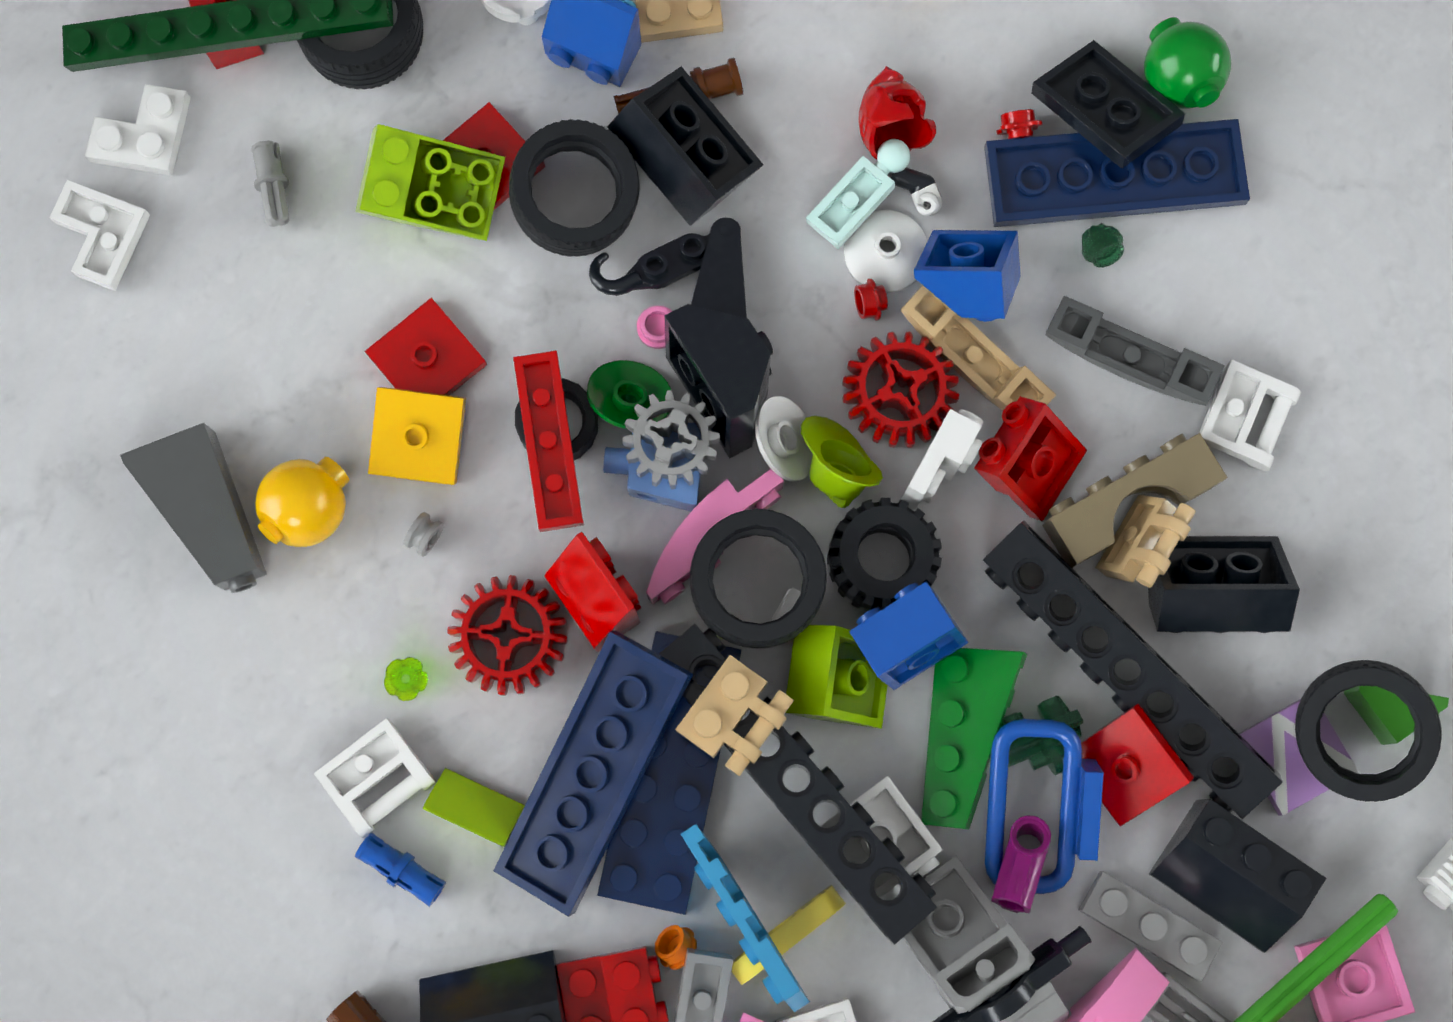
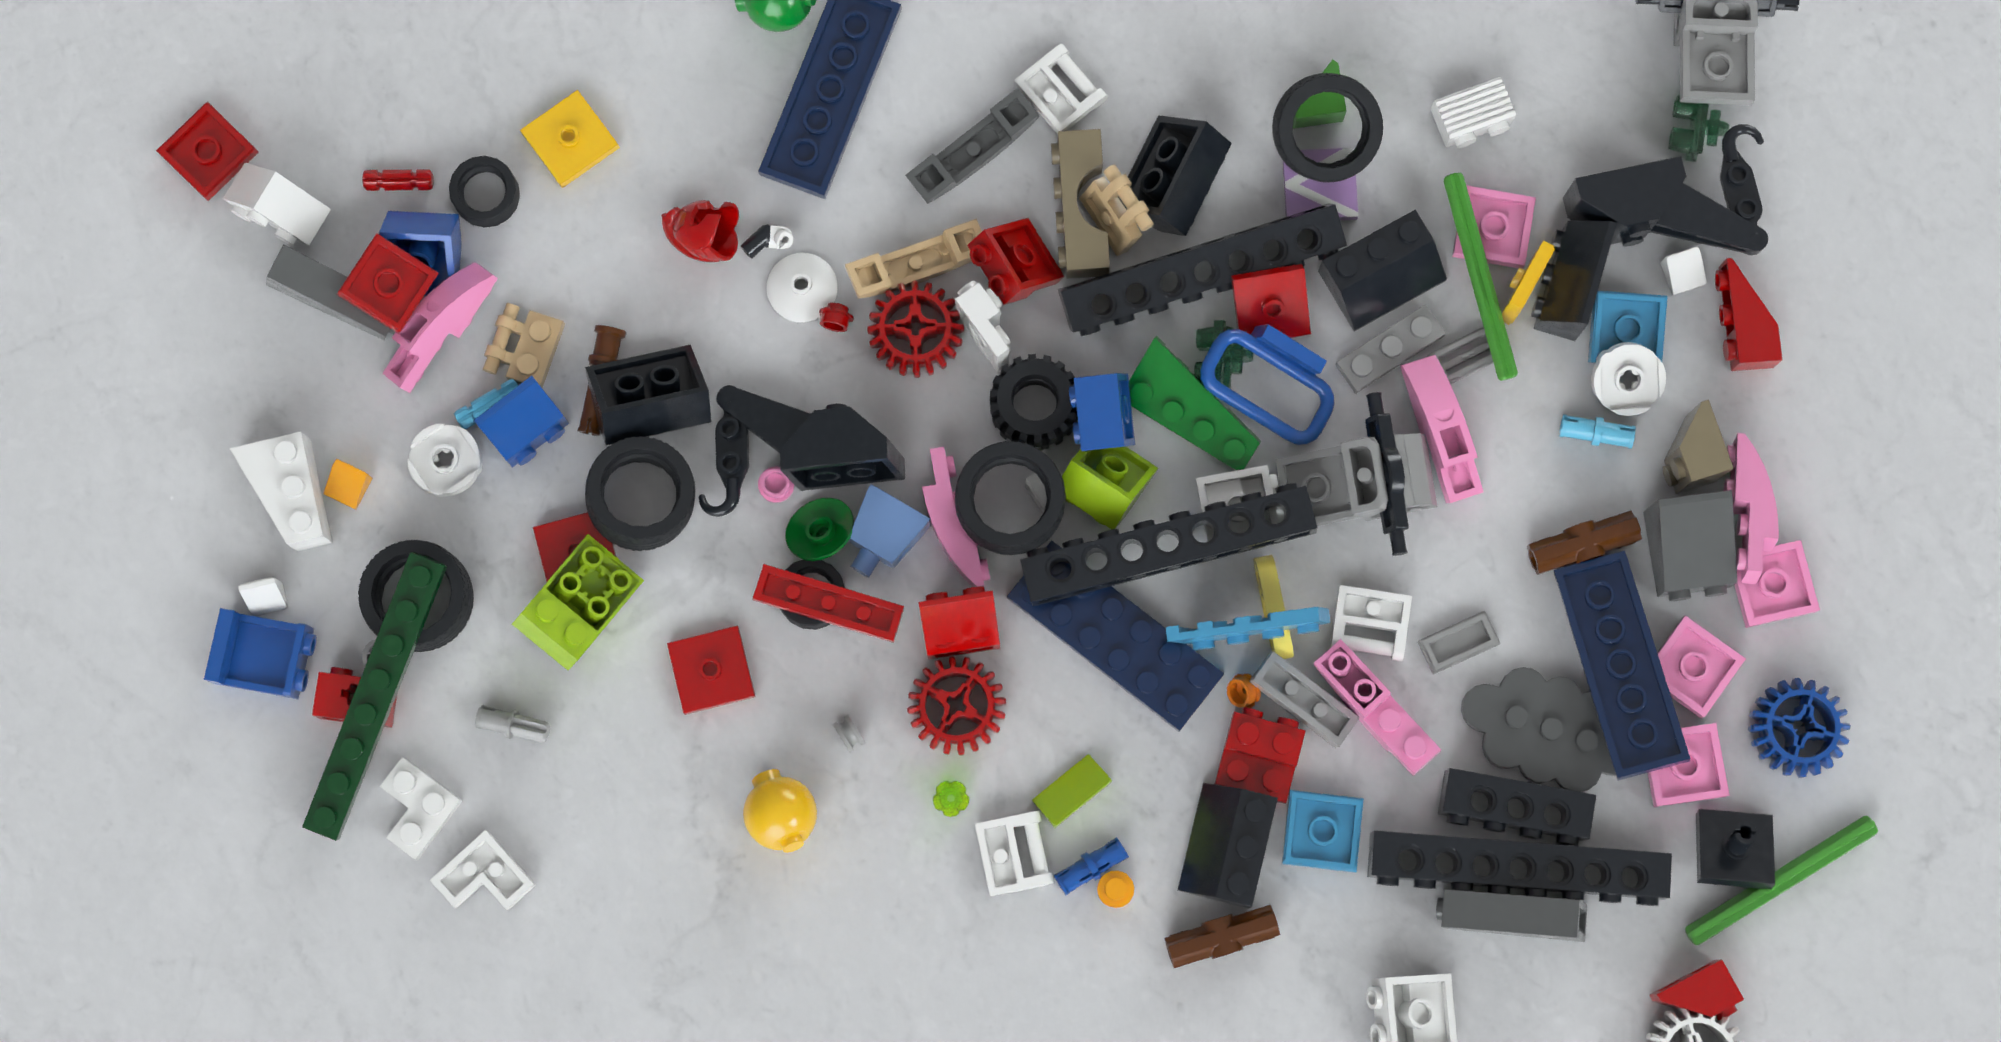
camera: 60 degrees left, 0 degrees up
(198, 499) = (737, 891): dark grey slope -> none
(387, 909) = (1115, 889): none -> light orange plate
(416, 435) = (770, 703): yellow plate -> none
(592, 772) = (1091, 687): dark blue plate -> none
(652, 433) = (887, 501): light grey gear -> none
(722, 708) = (1091, 567): tan plate -> none
(781, 438) = (912, 430): white dish -> none
(838, 461) = (948, 400): lime piece -> none
(858, 193) = (749, 284): light aqua plate -> none
(971, 271) = (855, 232): blue slope -> none
(1019, 124) = (757, 141): red plate -> none
(1022, 866) = (1305, 416): magenta piece -> none
(1102, 245) = (880, 127): clear green plate -> none
(1108, 103) = (776, 68): black plate -> none

